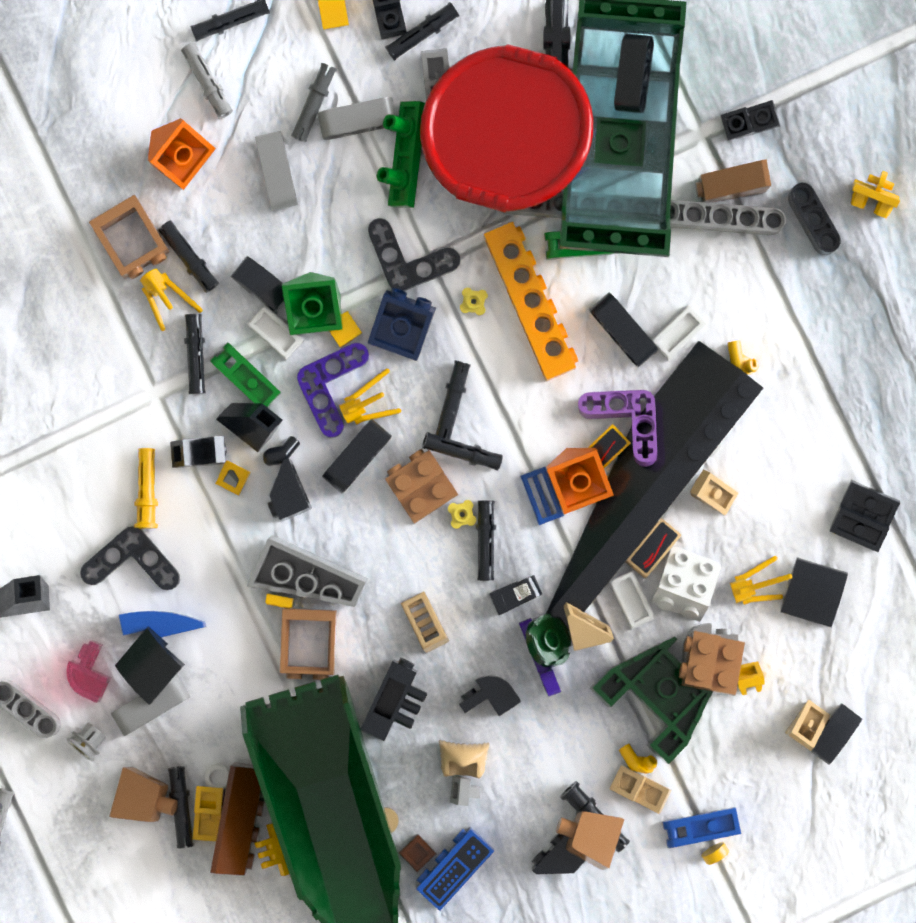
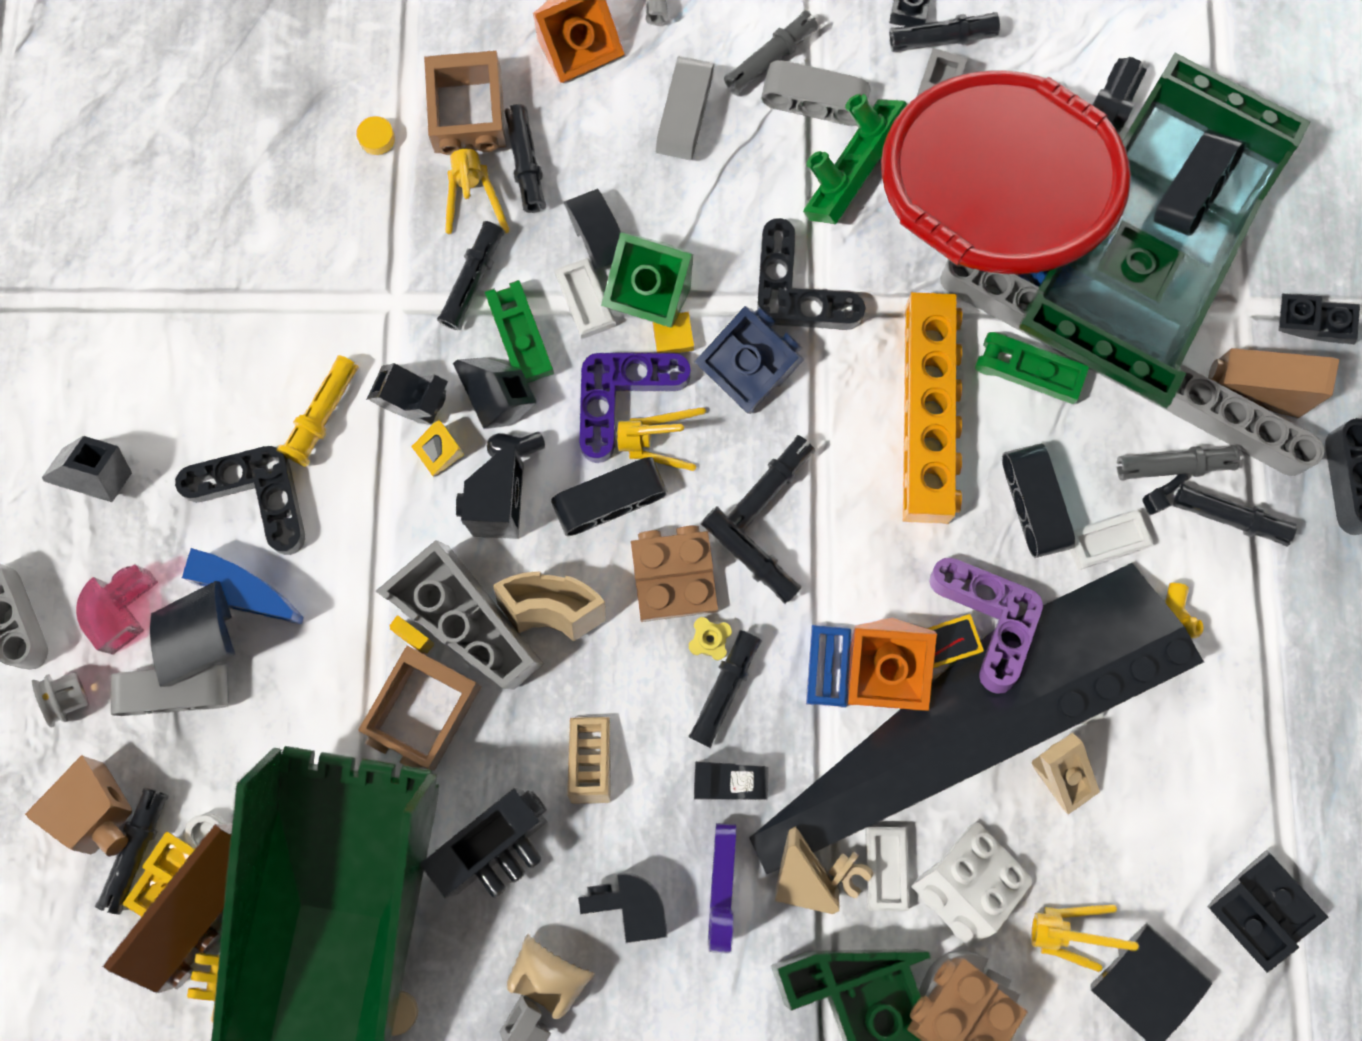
camera: 25 degrees right, 10 degrees down
(80, 287) = (375, 135): none -> yellow tile
(355, 540) = (550, 602): none -> tan brick
(478, 307) = (859, 385): light yellow plate -> none
(548, 641) = (745, 869): dark green tile -> none
(606, 614) = (845, 869): none -> tan plate
(653, 548) = (949, 811): black slope -> none
(692, 267) = (1192, 462): none -> dark grey pin
(697, 292) = (1157, 500): none -> black hand
(754, 279) = (1249, 520): none -> black pin

